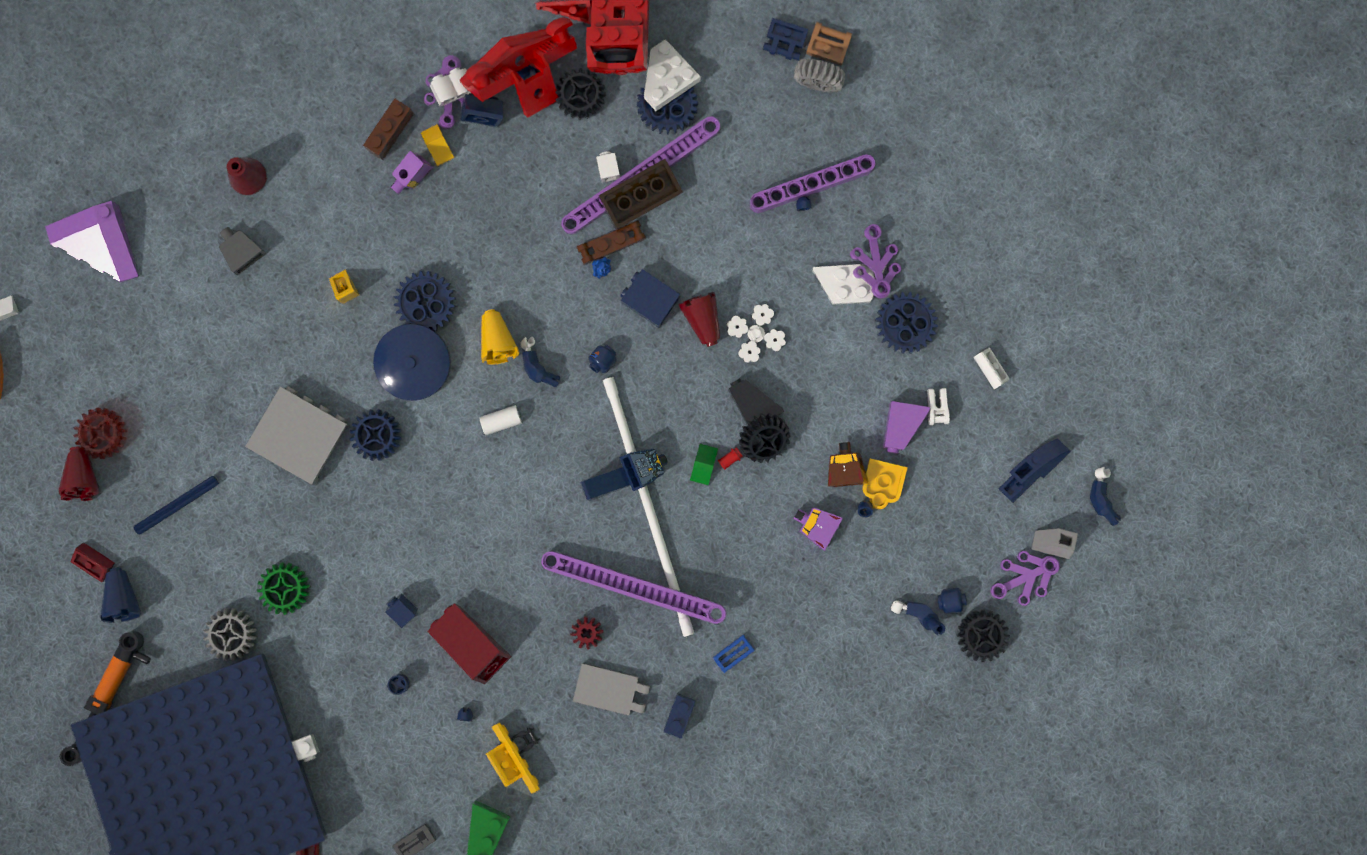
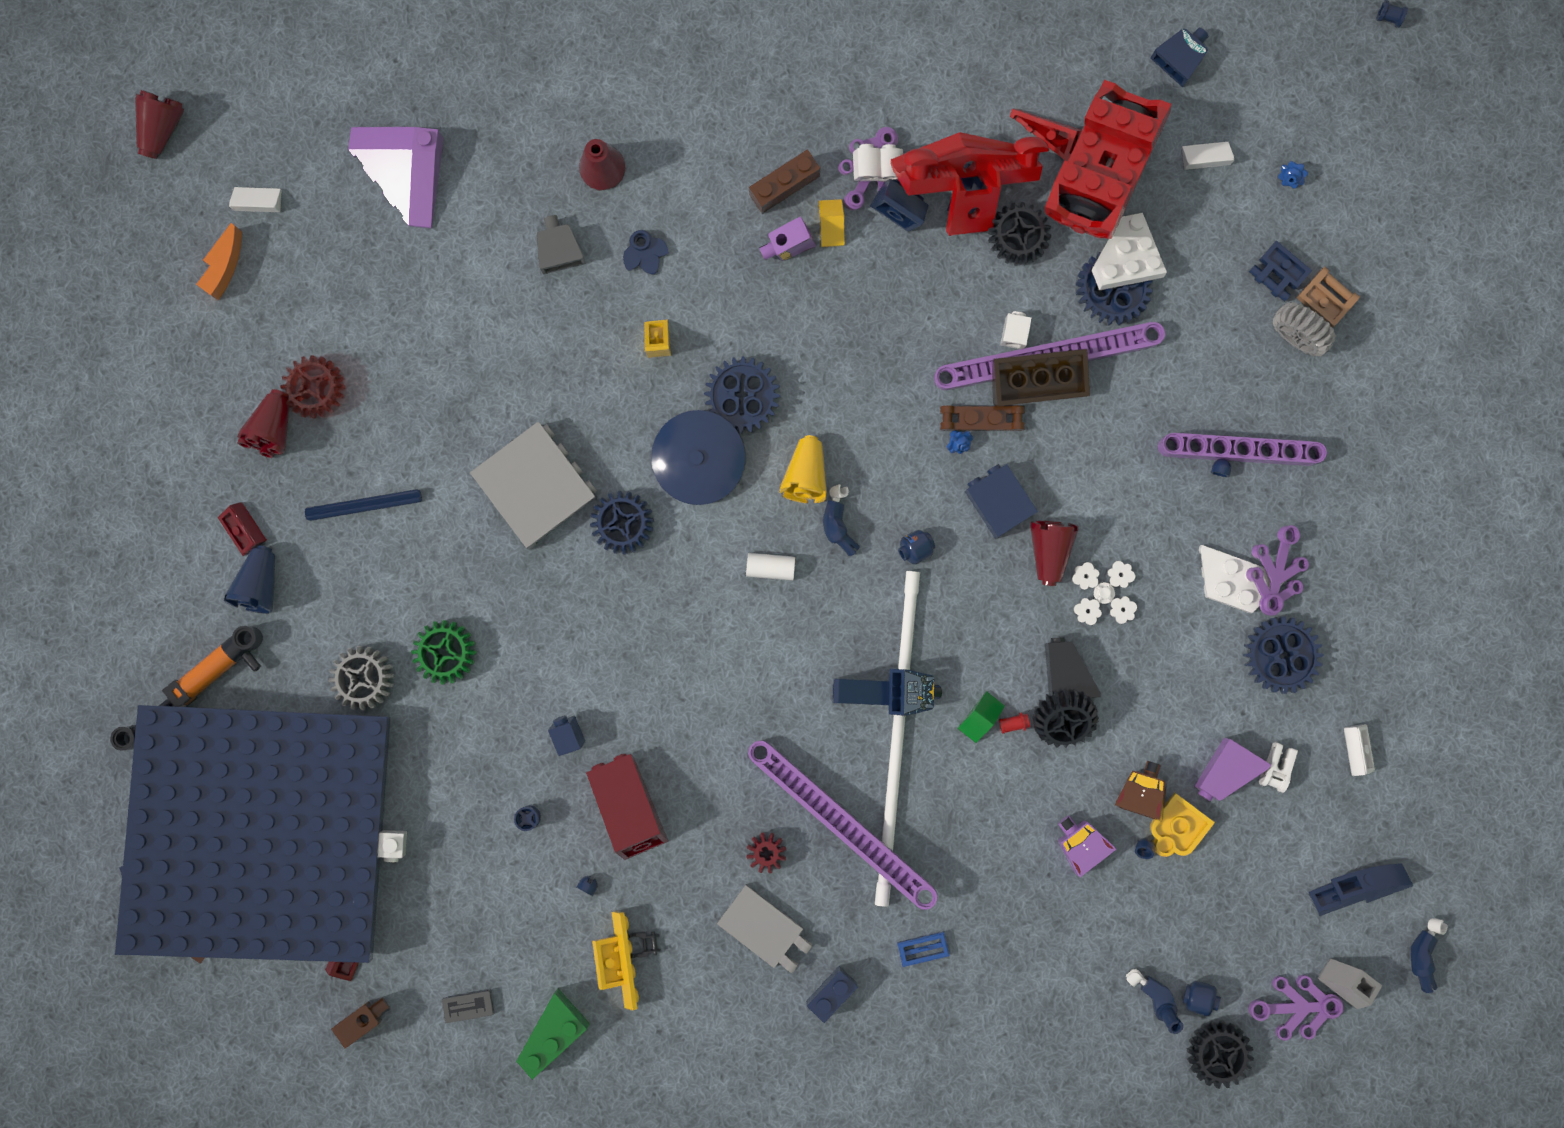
camera: 20 degrees right, 0 degrees up
(308, 229) = (644, 256): none -> dark blue plate

